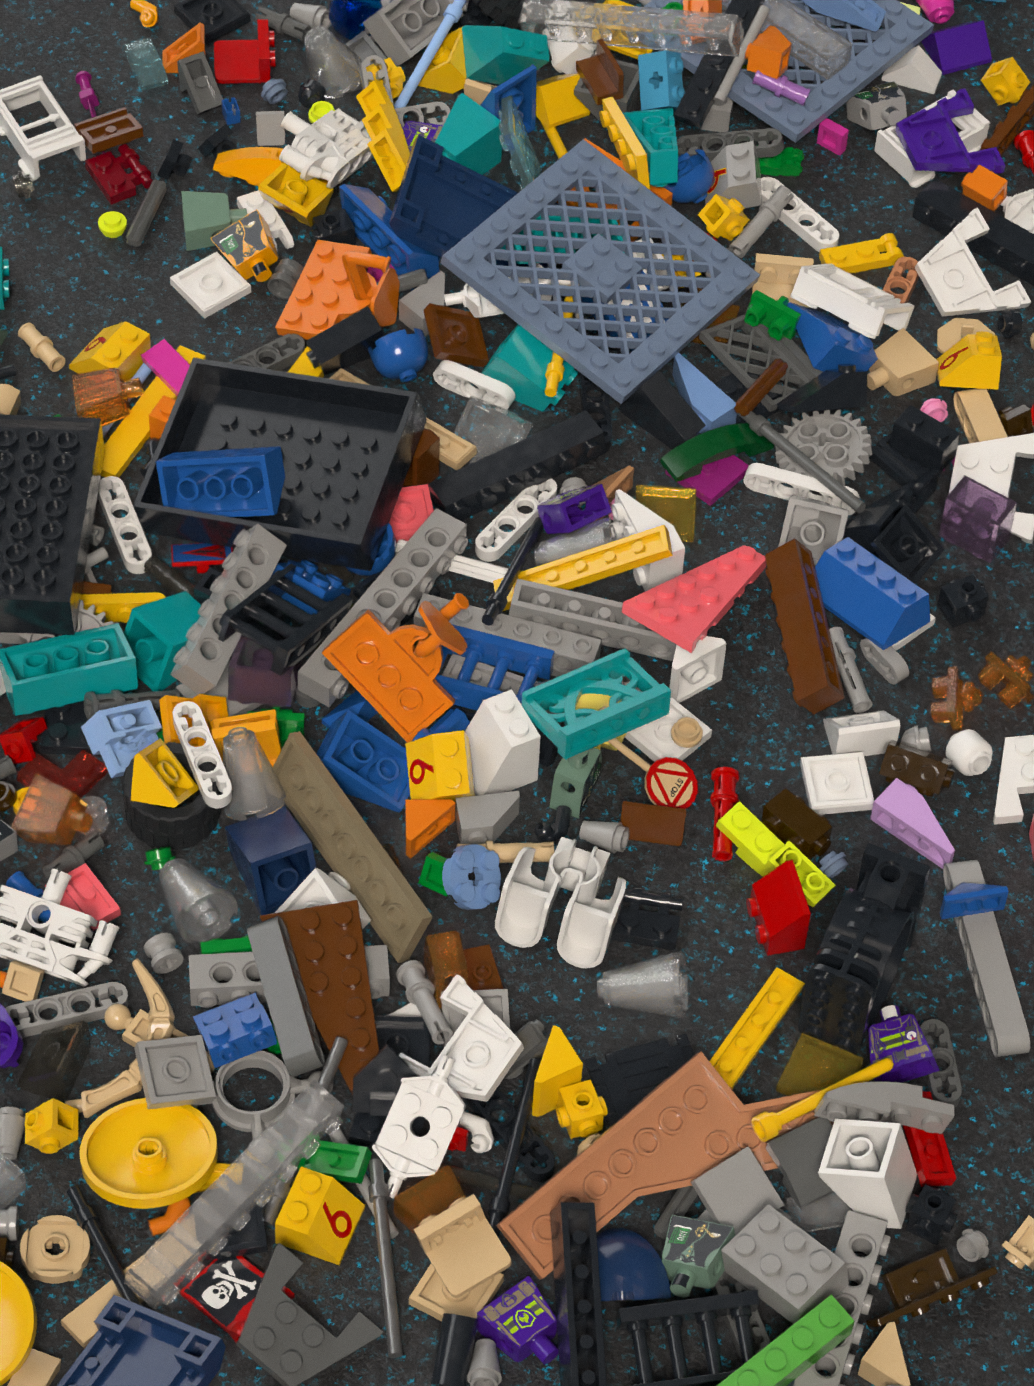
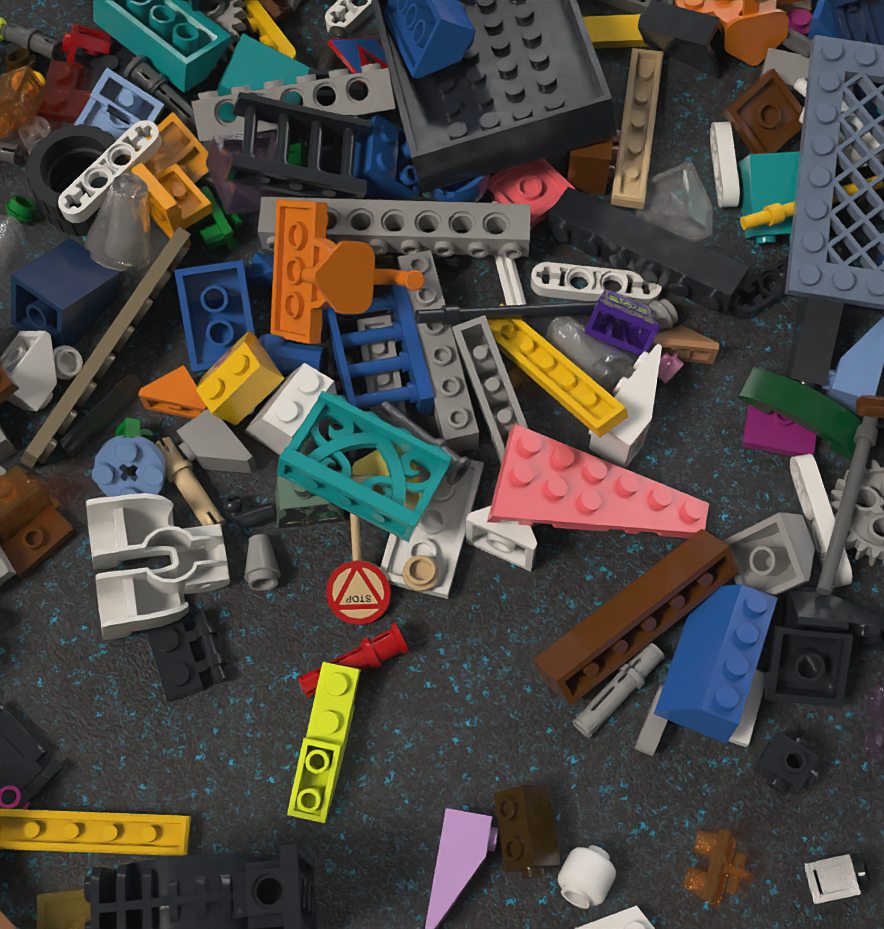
camera: 65 degrees right, 15 degrees up
(160, 777) = (57, 149): yellow slope -> none
(400, 355) = (706, 85): blue cylinder -> none
(648, 986) = (90, 706): clear cone -> none
(653, 823) = (300, 601): reddish brown slope -> none
(673, 505) = (698, 409): clear yellow plate -> none
(780, 910) = (251, 783): red slope -> none
(795, 822) = (371, 755): dark brown brick -> none
(833, 864) = (352, 806): sand blue plate -> none
(837, 783) = (462, 755): white plate -> none
(862, 732) = (545, 743): white slope -> none
(917, 738) = (569, 811): light grey plate -> none
(957, 698) = (653, 825): clear orange hips -> none

